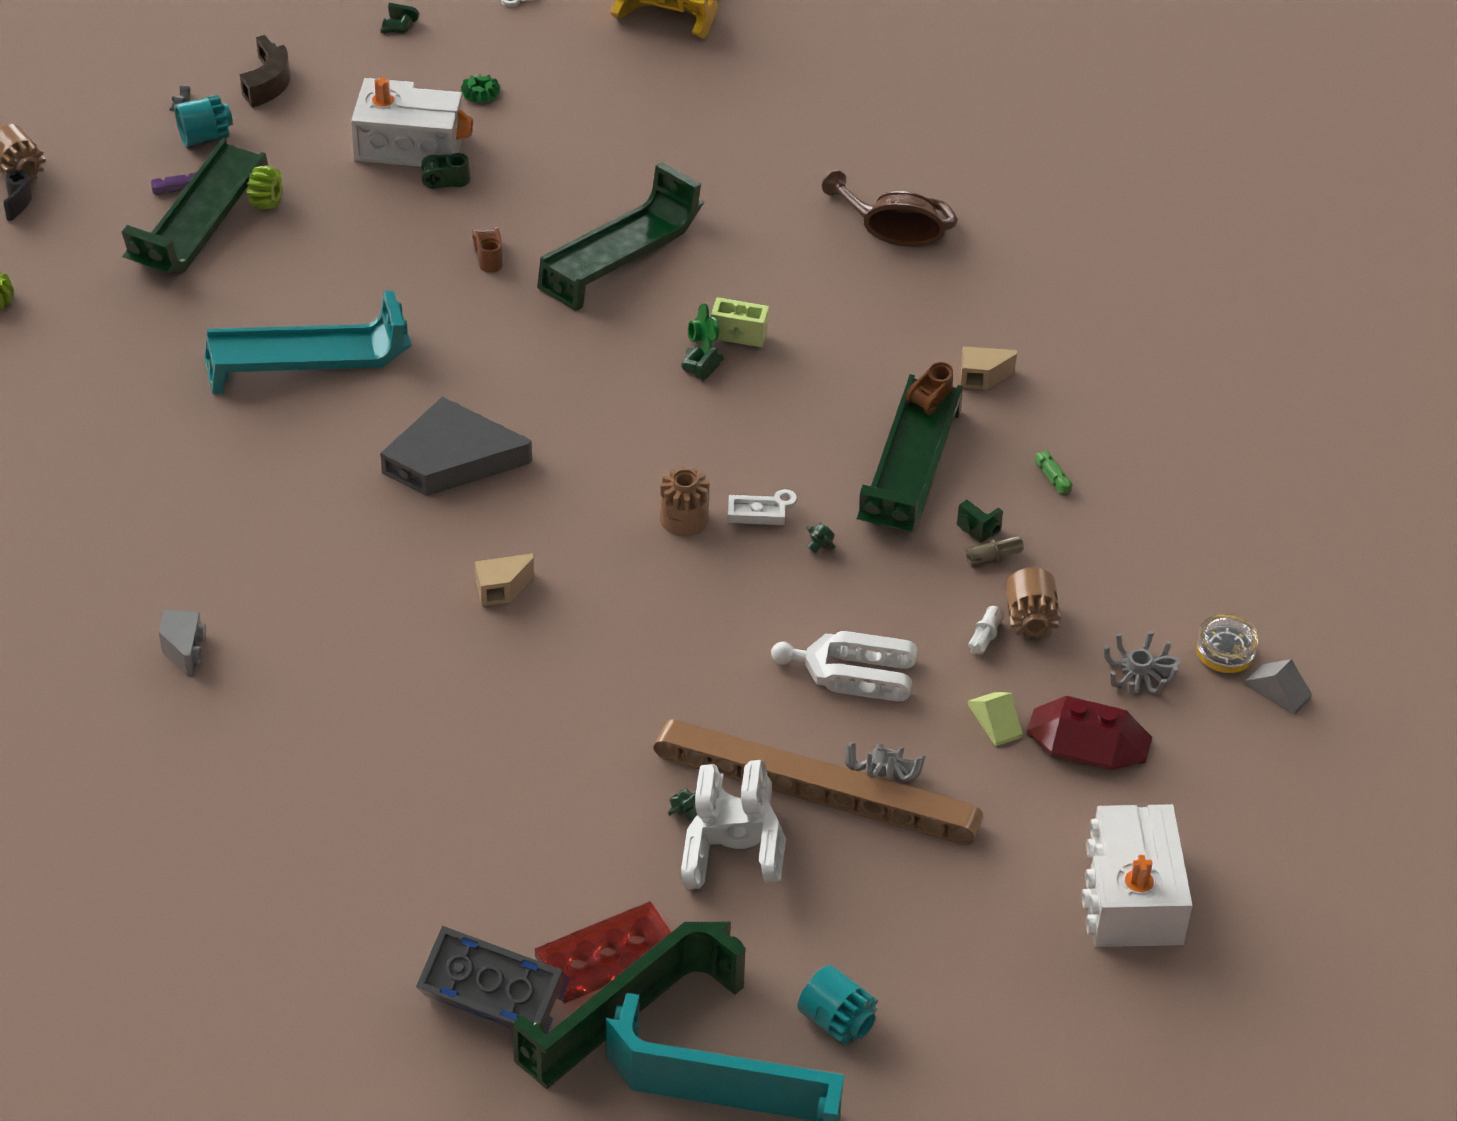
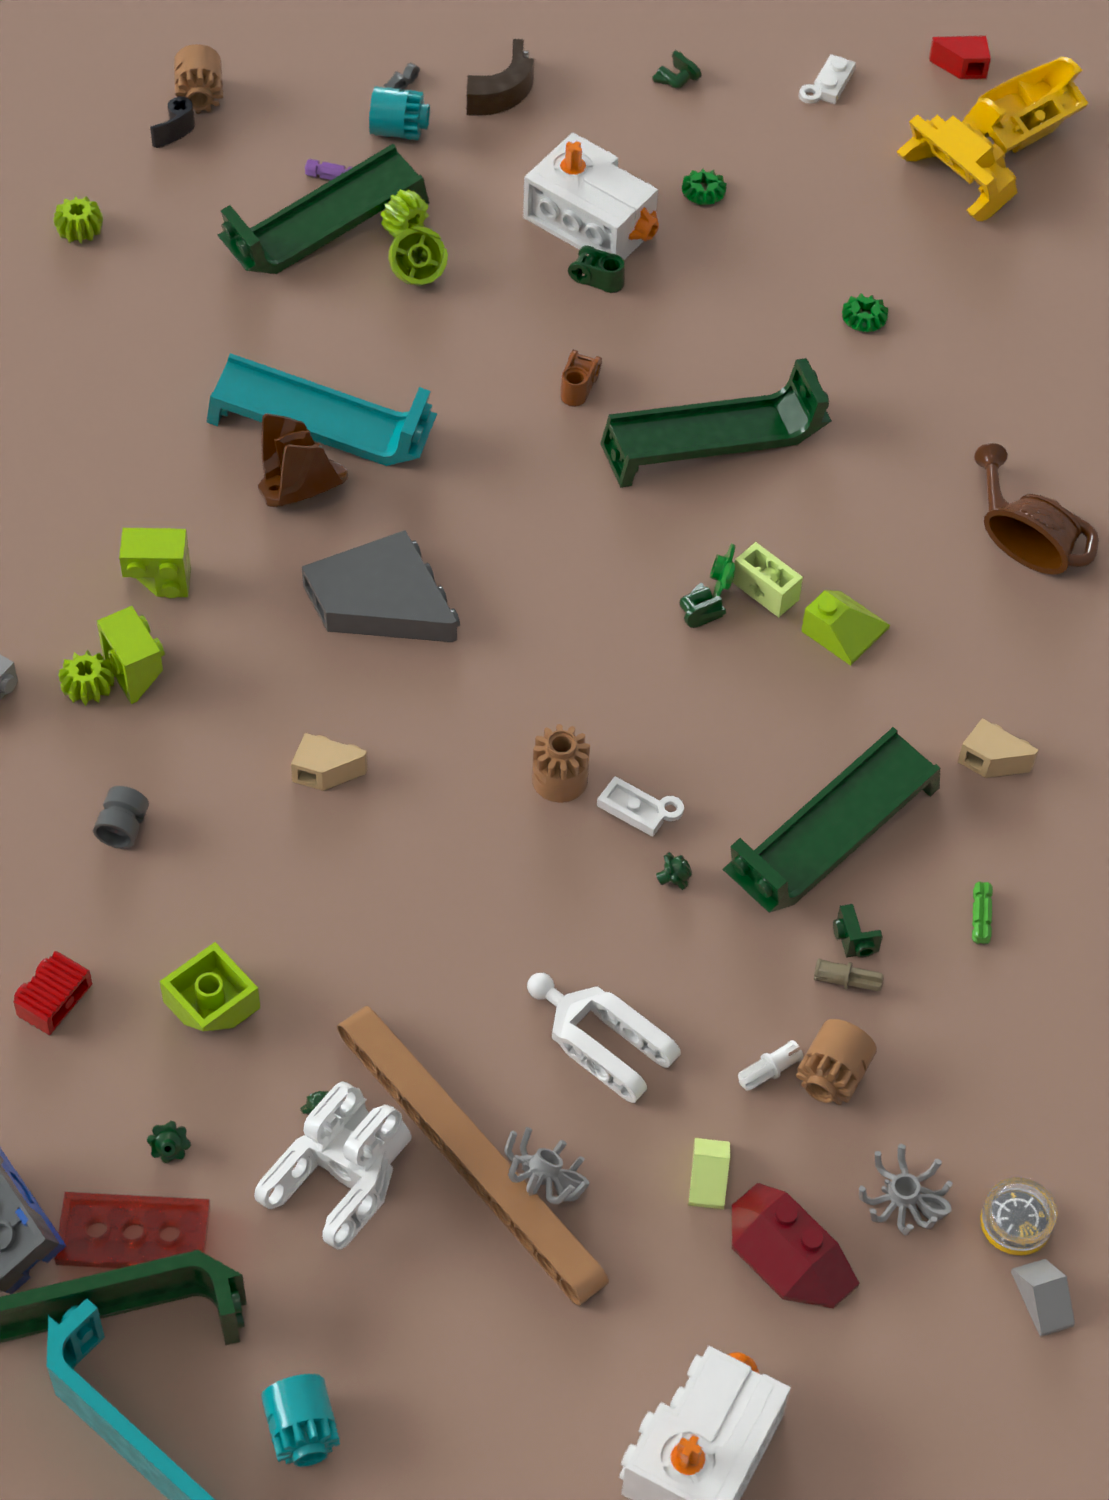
camera: 30 degrees right, 10 degrees up
(260, 494) = (157, 559): none -> lime slope
(263, 601) = (86, 677): none -> lime gear
(291, 565) = (131, 651): none -> lime slope
(300, 210) = (418, 256): none -> lime cylinder
(316, 387) = (294, 463): none -> reddish brown piece
(371, 682) = (121, 817): none -> dark grey wheel
(412, 823) = (52, 992): none -> red brick
(541, 763) = (210, 991): none -> lime slope
(587, 879) = (168, 1142): none -> dark green plant
(676, 130) = (864, 321): none -> green gear
(813, 334) = (842, 625): none -> lime slope
(930, 391) = (899, 757): dark orange piece -> none

